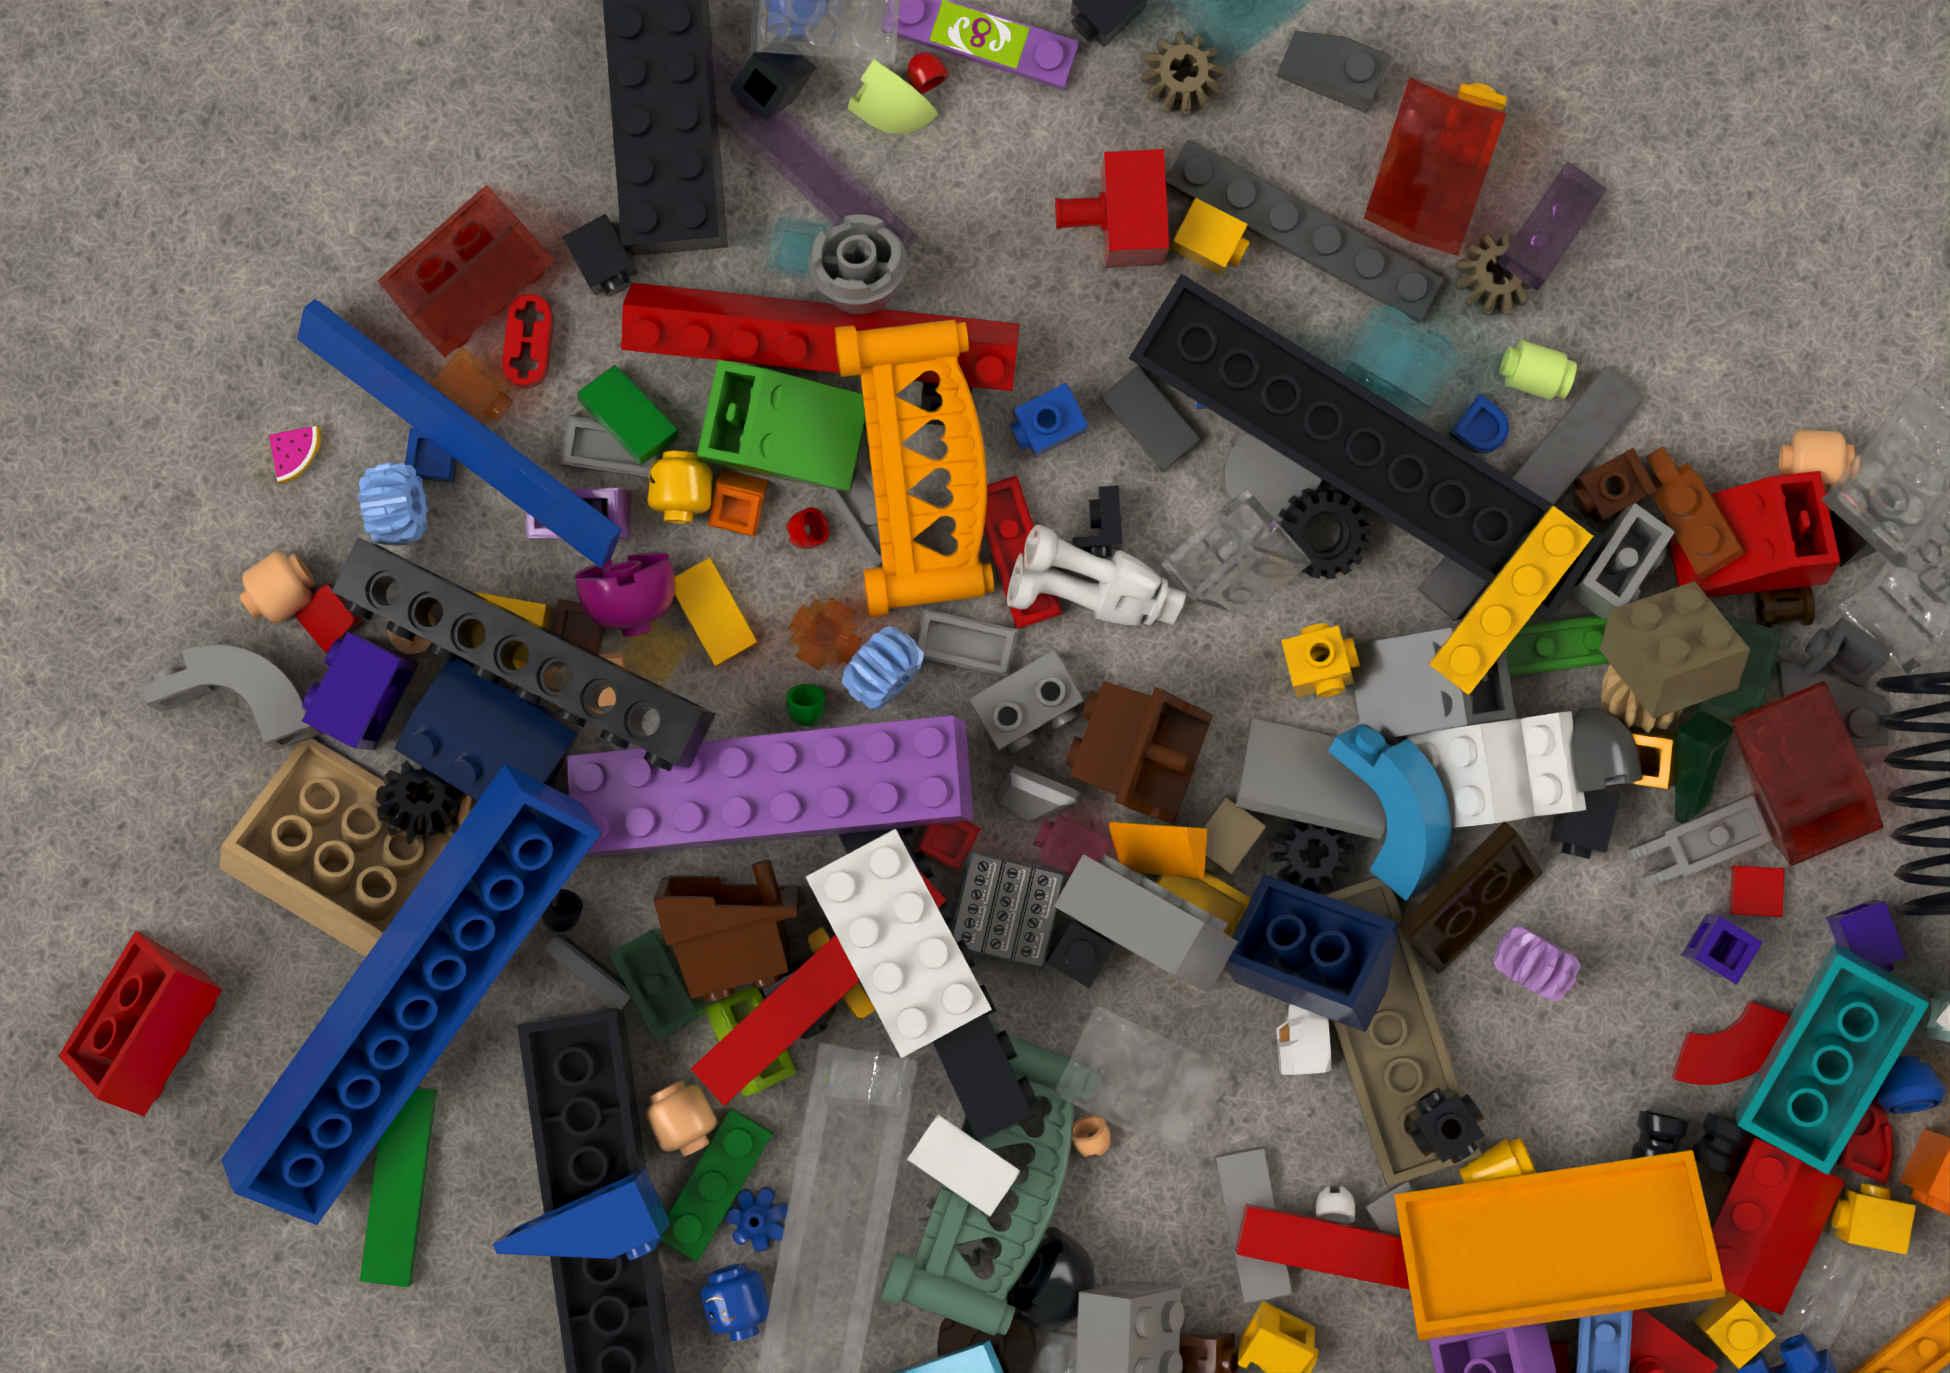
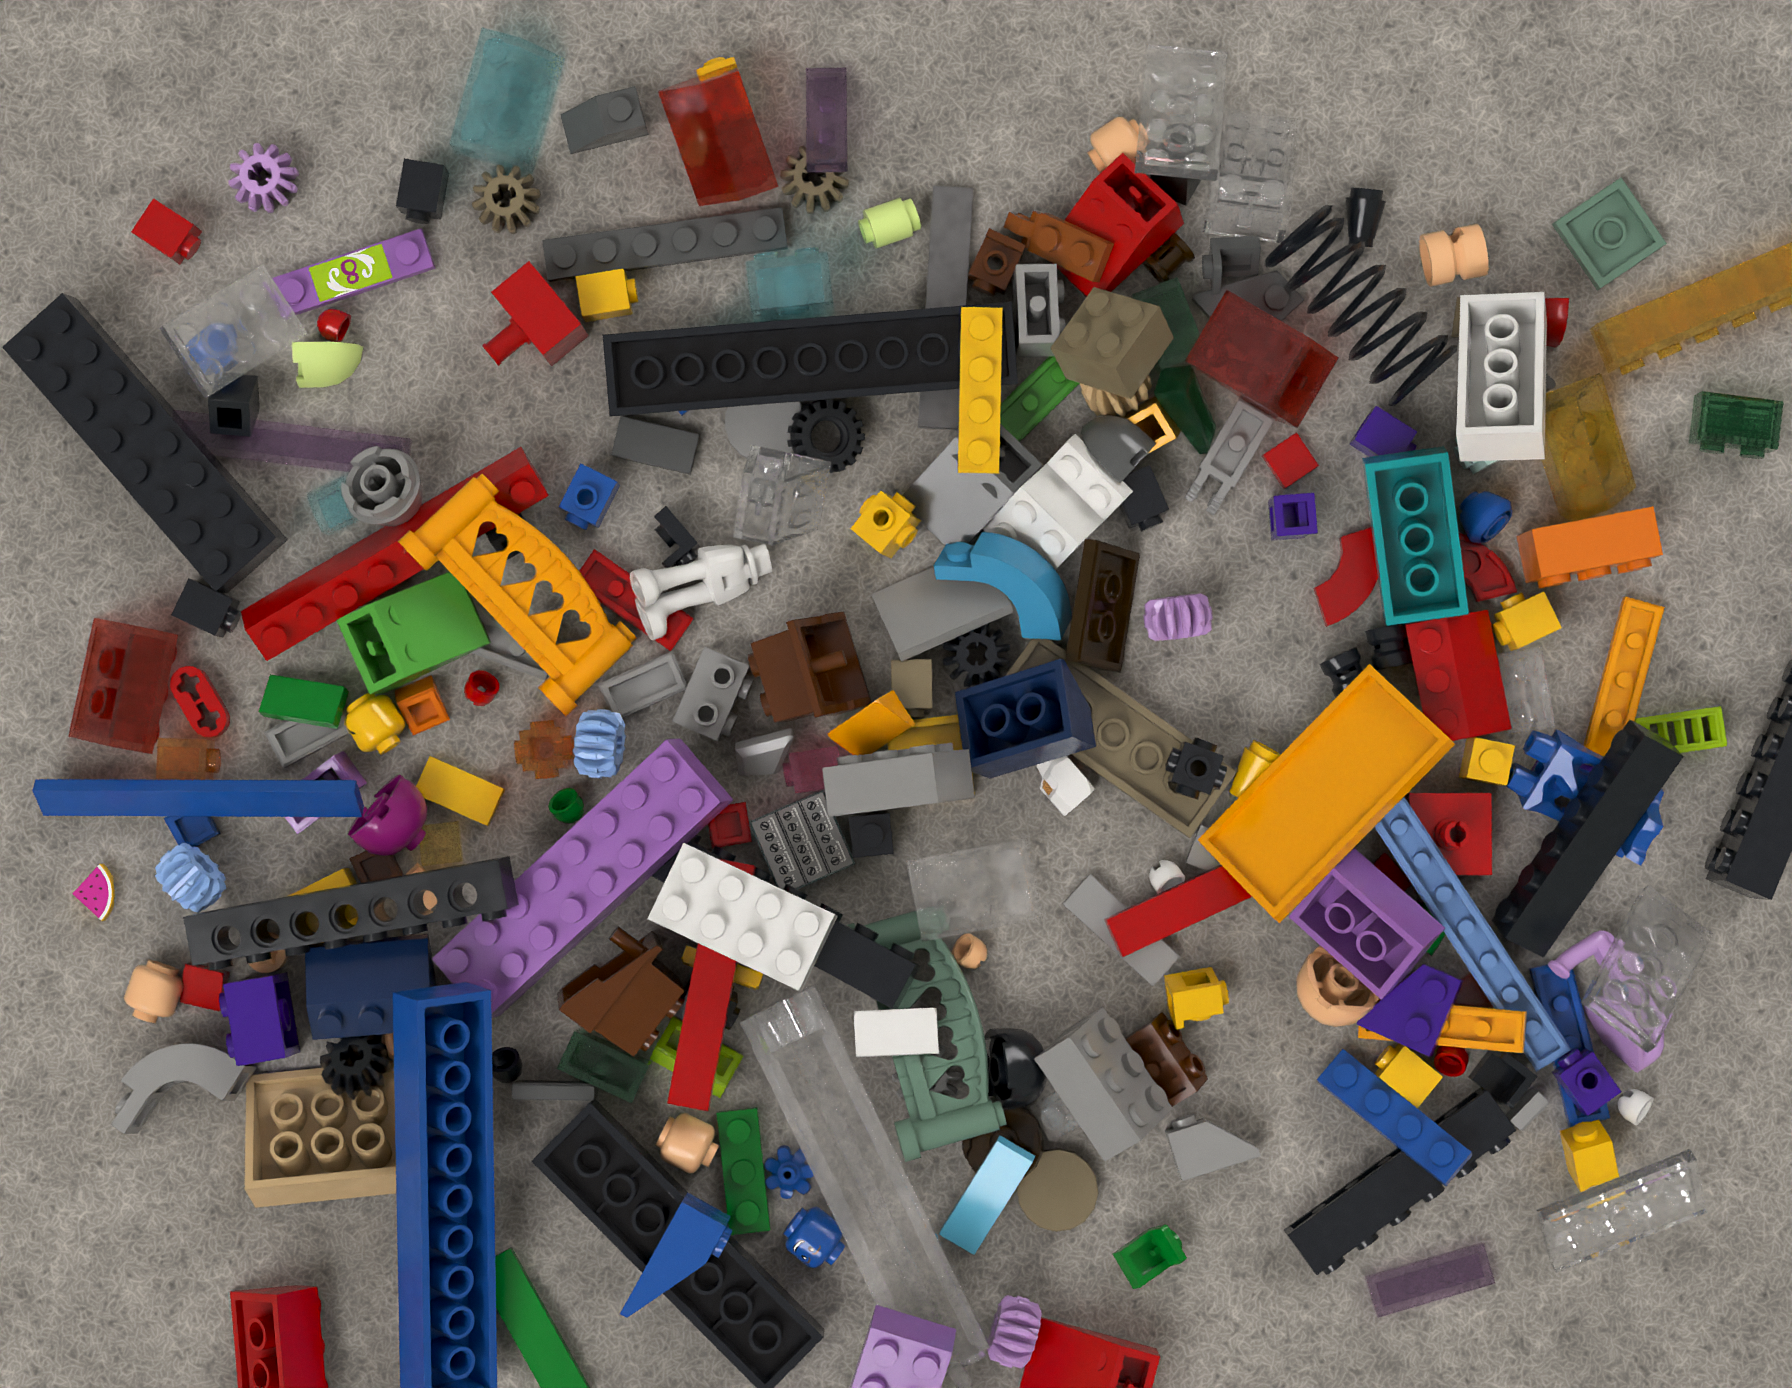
camera: 40 degrees left, 0 degrees up
(1481, 426) = (880, 287): blue tile -> none

